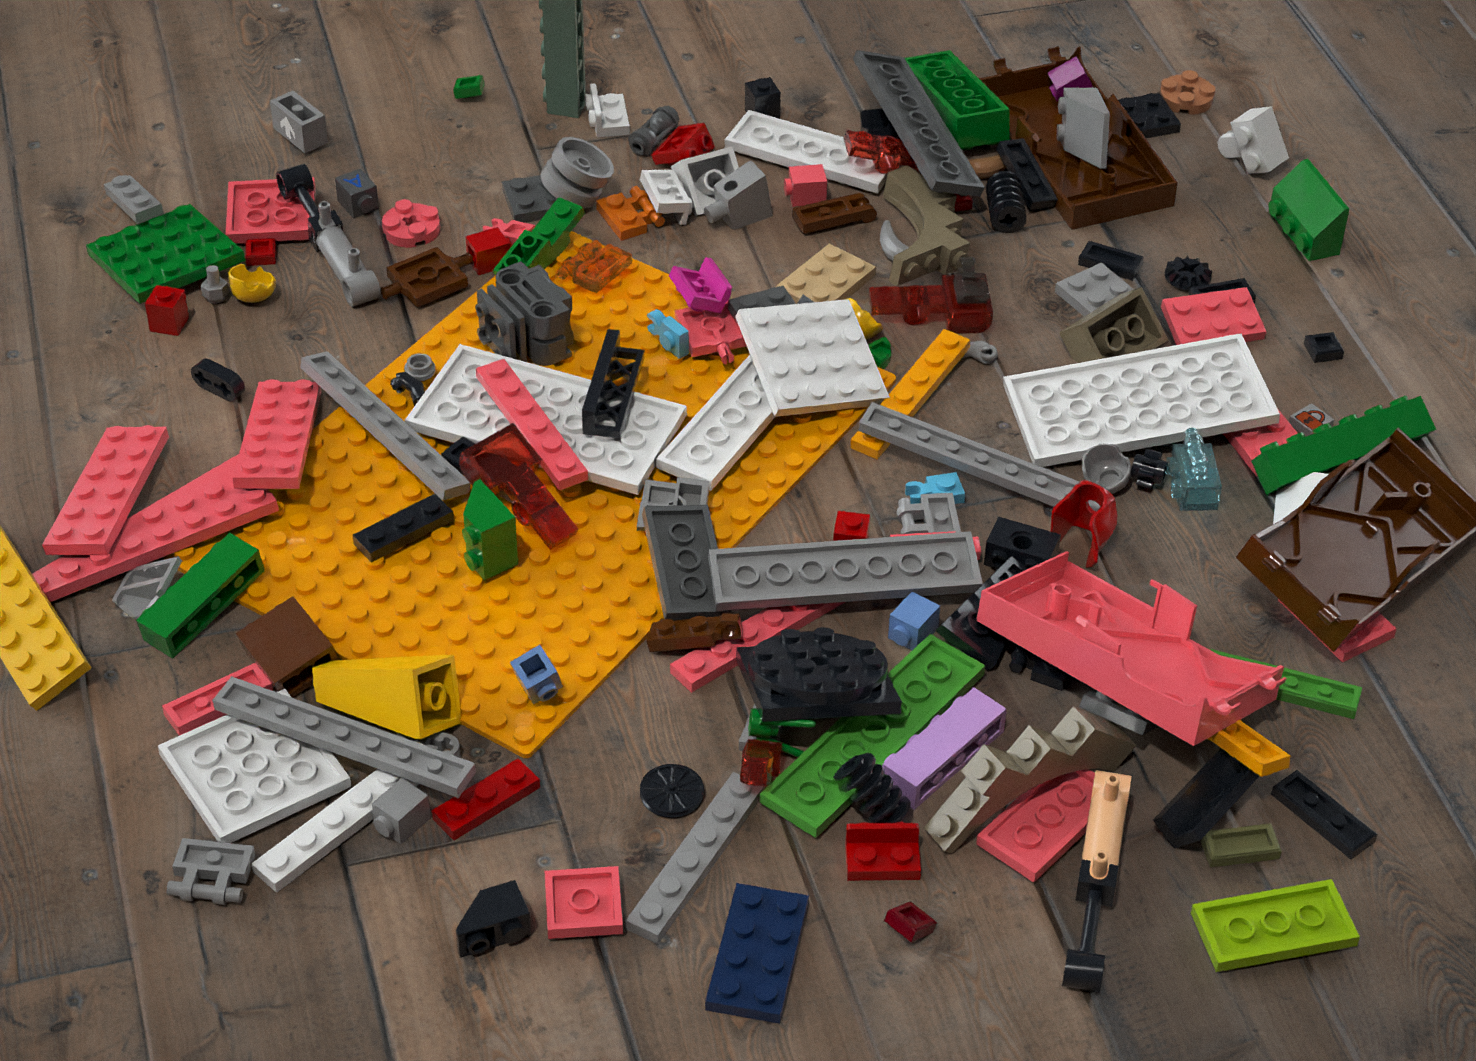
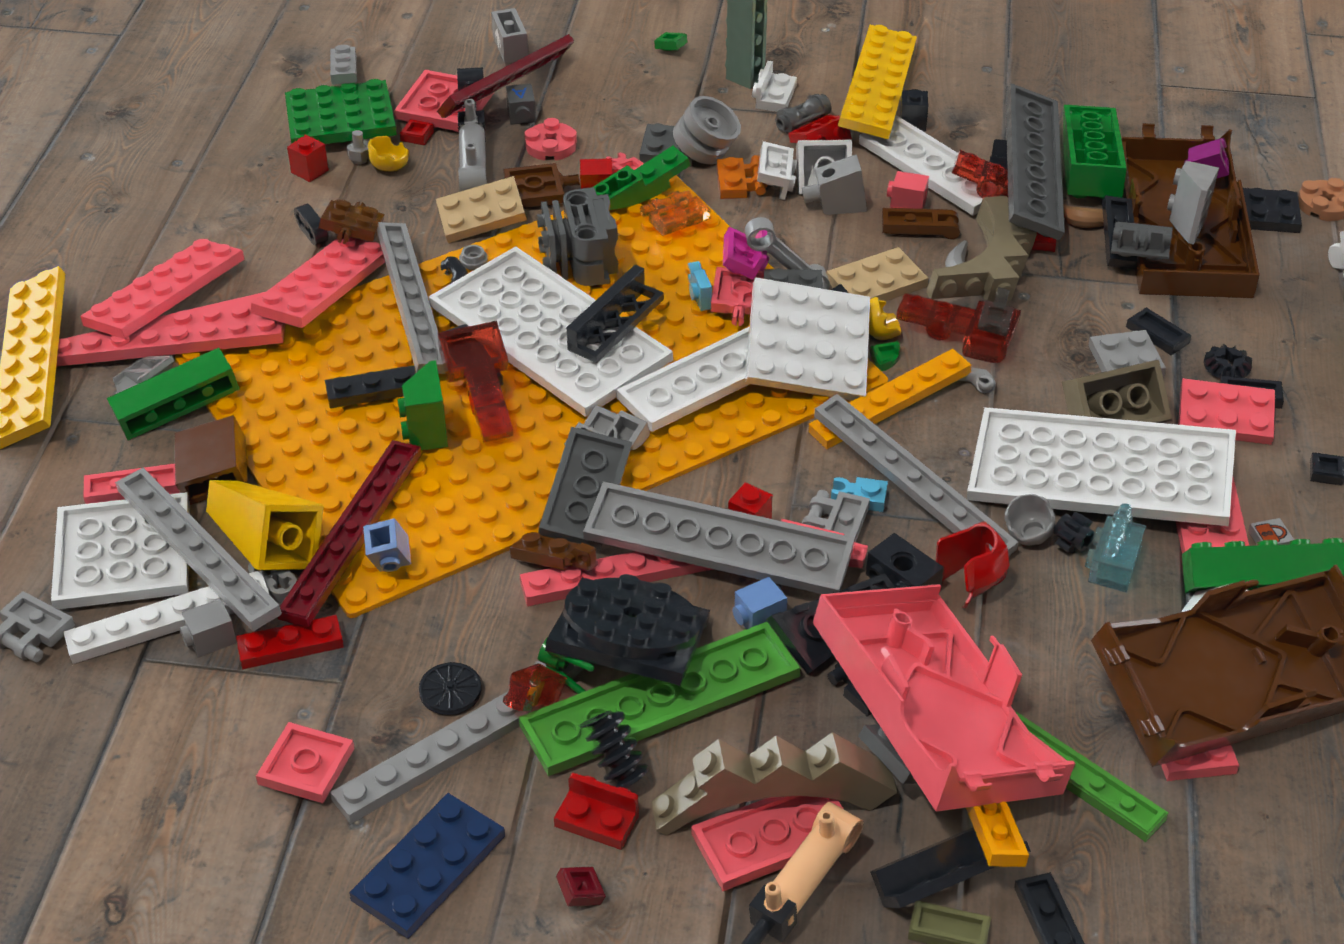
camera: 25 degrees right, 0 degrees up
(265, 364) = (351, 221): none -> reddish brown plate
(331, 168) = (505, 76): none -> dark red tile
(391, 316) = (480, 209): none -> tan plate
(482, 674) = (348, 534): none -> dark red tile
(493, 920) = (218, 750): black slope -> none
(522, 410) = (527, 330): coral plate -> none
(711, 78) = (878, 81): none -> yellow plate
(732, 272) = (777, 248): none -> light grey piece
(945, 746) = (740, 721): lavender brick -> none
(1006, 202) = (1084, 252): black piece -> none
(1058, 176) = (1141, 240): none -> dark grey hinge

